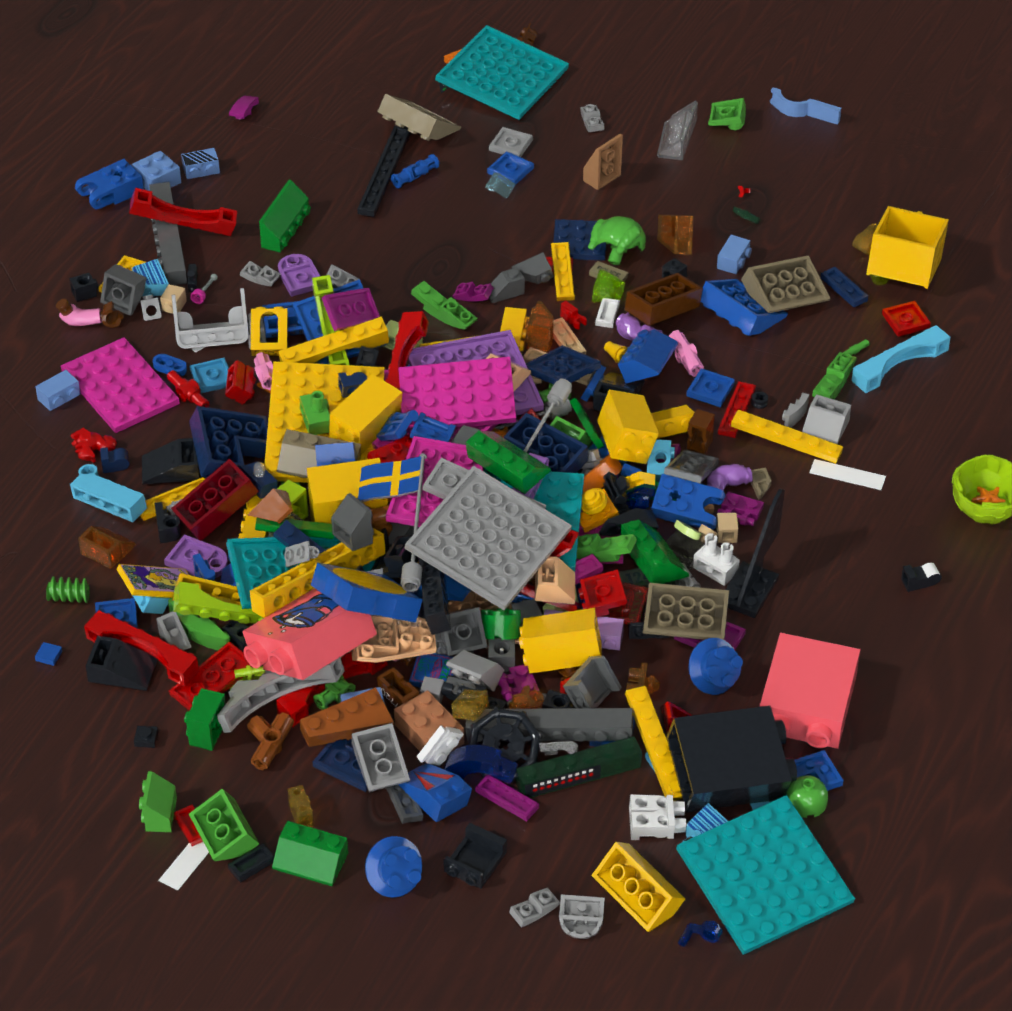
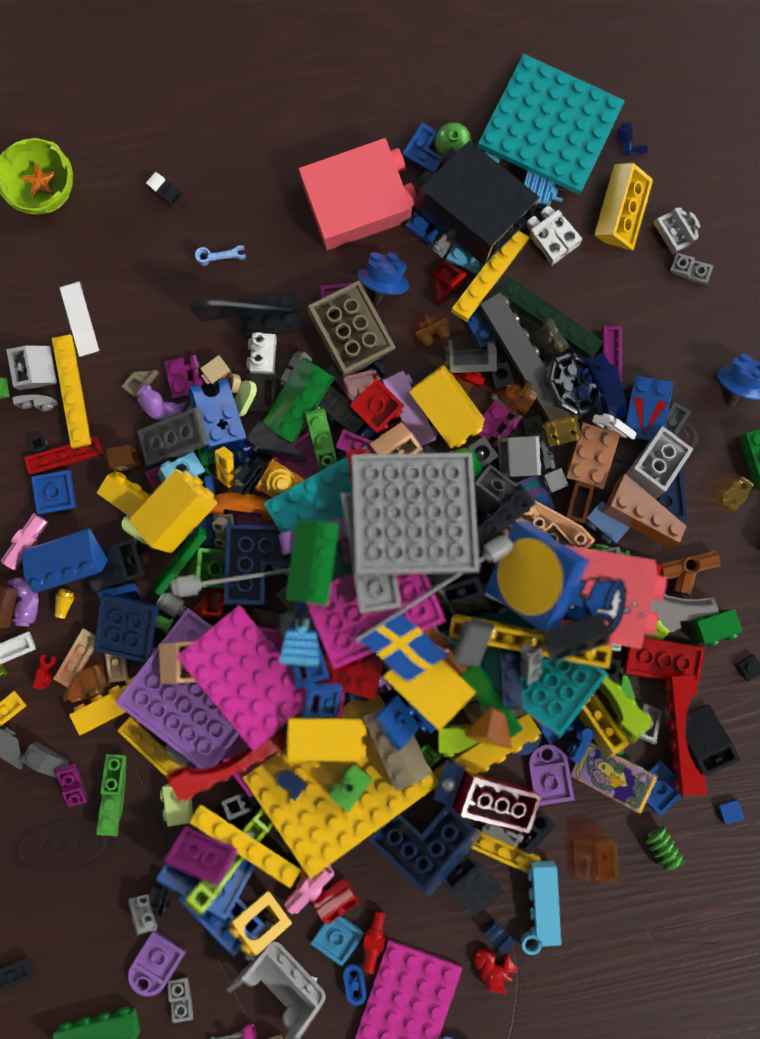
camera: 125 degrees left, 40 degrees up
(294, 578) = (576, 637): none -> black brick
(449, 424) = (300, 646): none -> torso
(476, 856) = (682, 339): black panel -> none
(836, 567) = (204, 252): none -> light blue brick

